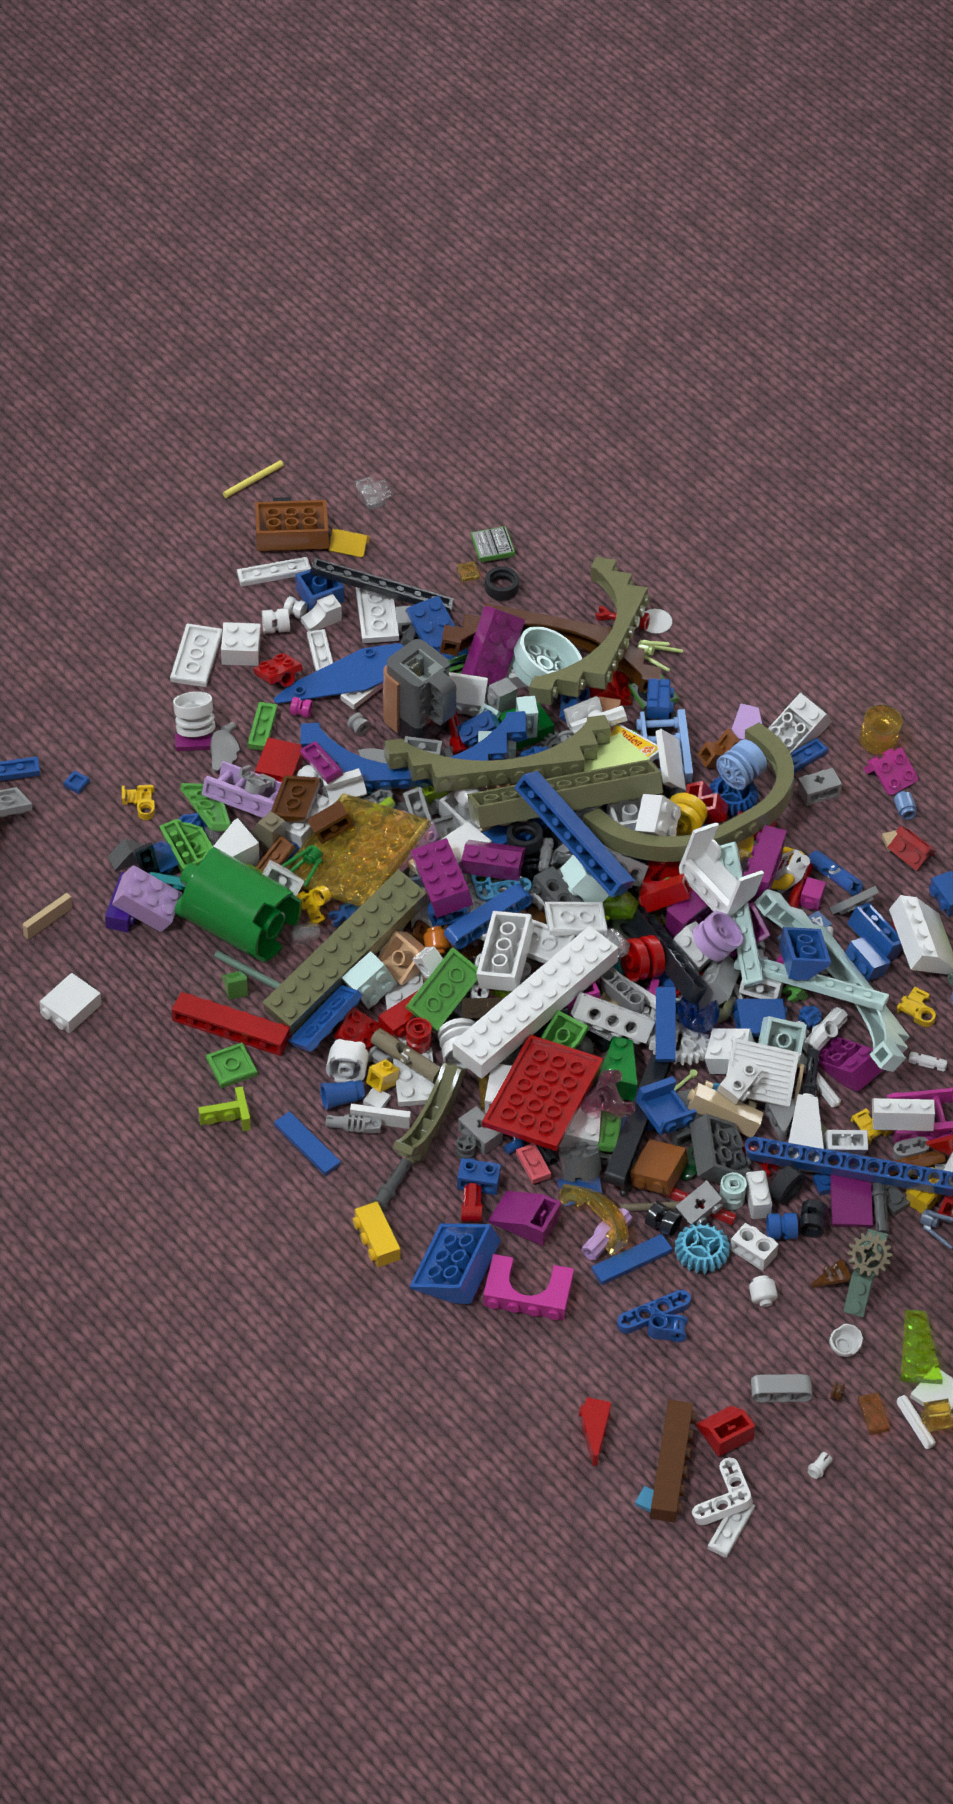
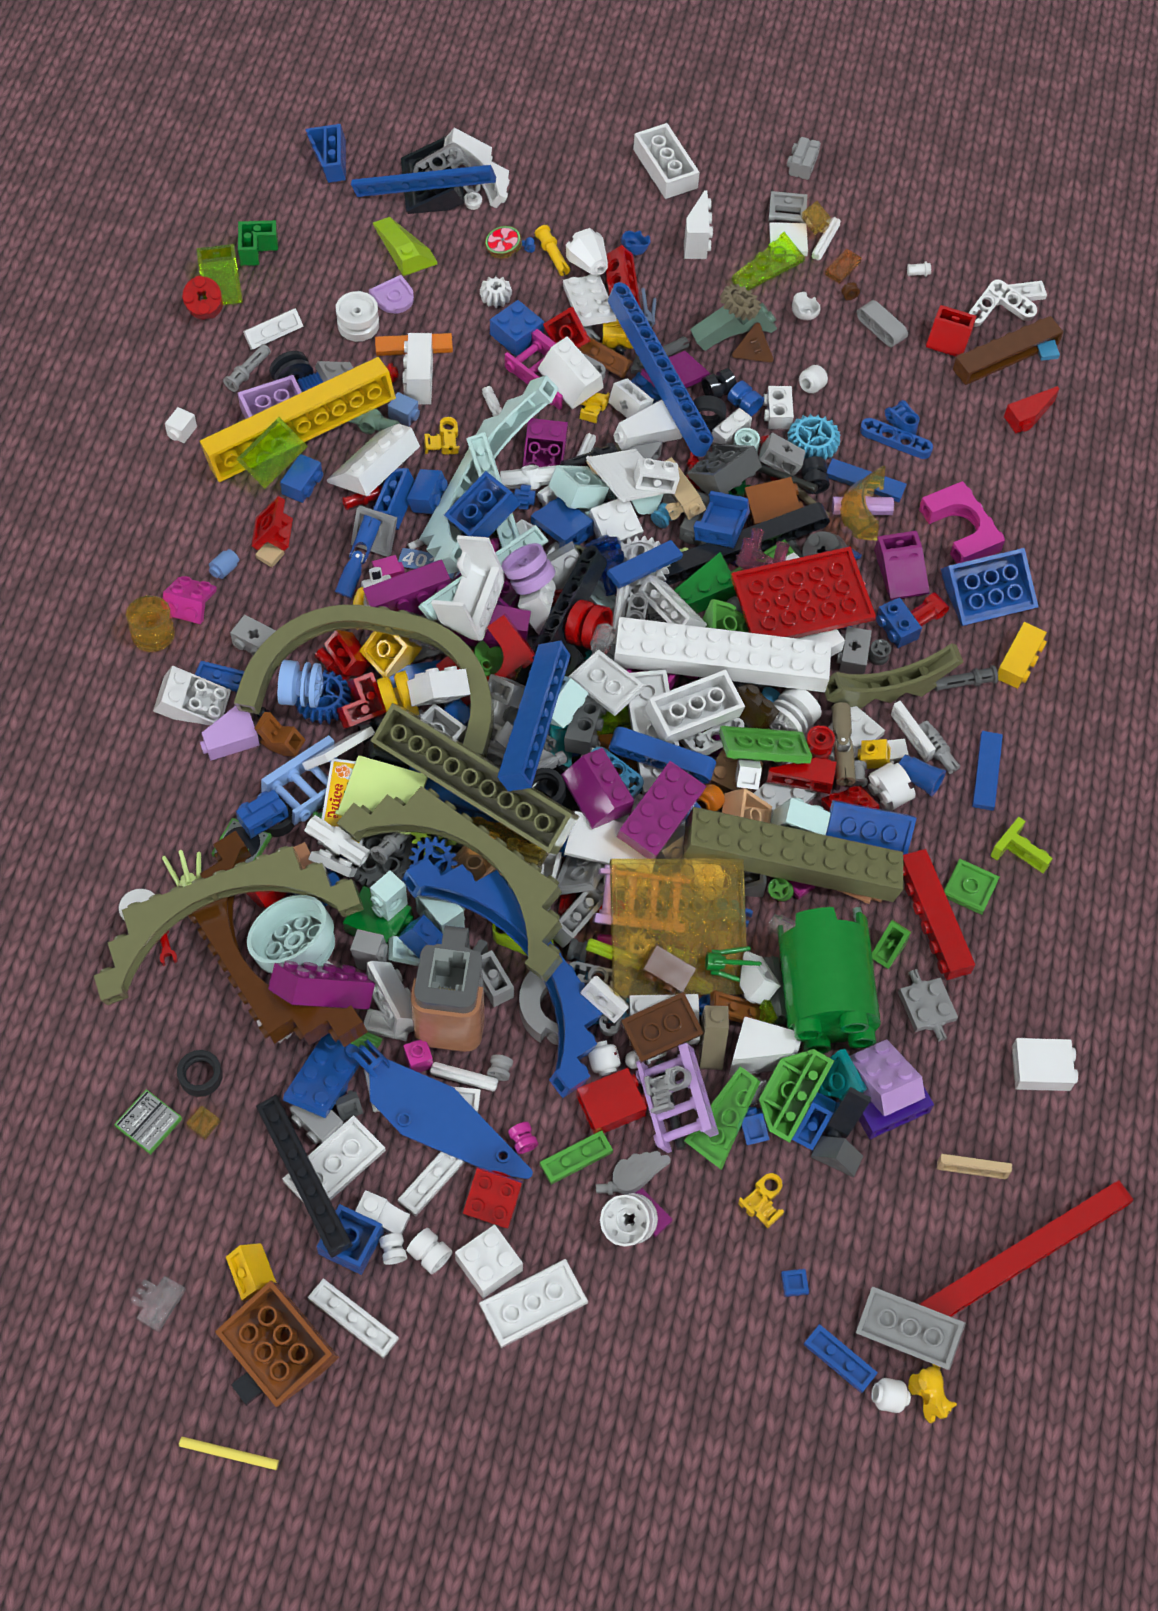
camera: 130 degrees left, 10 degrees up
(174, 974) = (927, 1005): none -> light grey plate
(314, 901) = (756, 931): yellow piece -> none
(321, 762) = (605, 1029): magenta tile -> none
(369, 708) = (464, 1076): none -> white axle
(674, 1194) = (781, 475): none -> pearl dark grey bar

